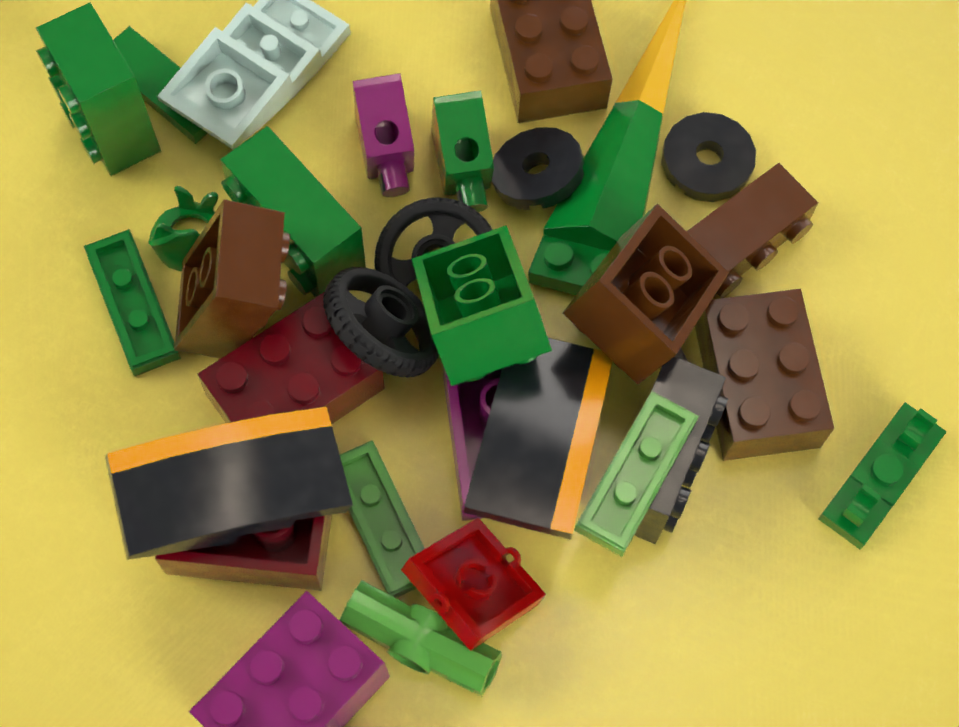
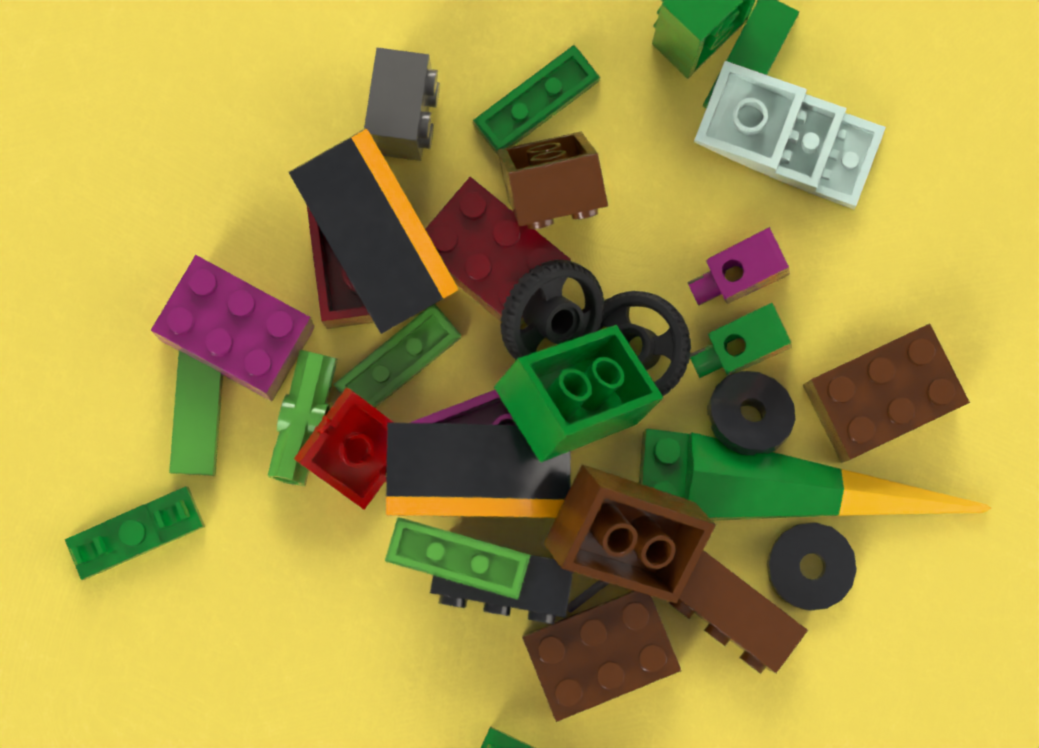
camera: 80 degrees right, 15 degrees up
(78, 426) = (400, 102): none -> dark grey brick
(174, 244) = (589, 125): green piece -> none
(319, 228) = (637, 210): green brick -> none

